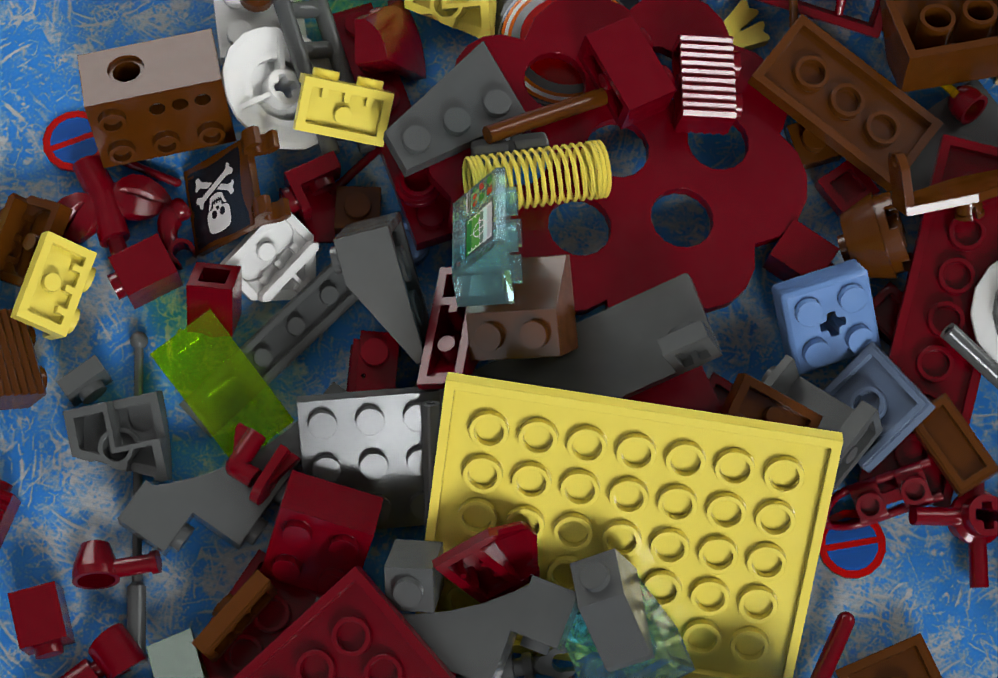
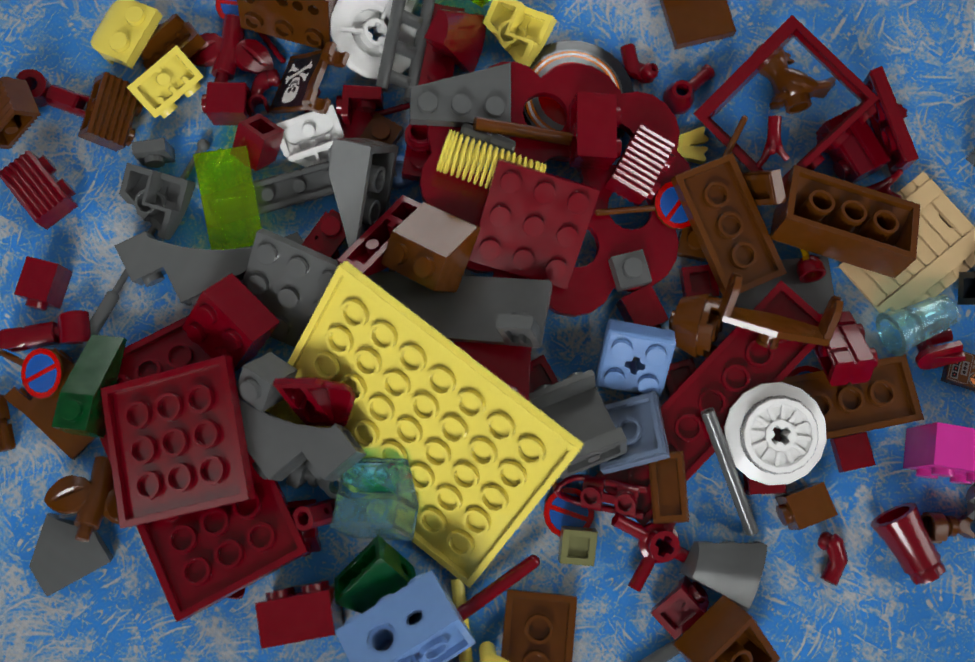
camera: 30 degrees right, 5 degrees up
(99, 569) = (97, 270): dark red bar -> none
(234, 615) = (150, 345): reddish brown plate -> none
(238, 466) = (213, 270): dark red piece -> none
(343, 108) = (399, 60): light yellow bracket -> none
(486, 243) = (427, 192): clear light blue slope -> none
(613, 608) = (373, 473): dark grey slope -> none
(626, 217) = (533, 223): none -> dark red plate
(759, 117) = (666, 206): none -> piece
(759, 401) = (555, 400): reddish brown plate -> none
(762, 215) = (630, 270): none -> dark grey plate
(863, 33) = (766, 186): none -> reddish brown tile
(885, 574) = (577, 545): none -> olive plate

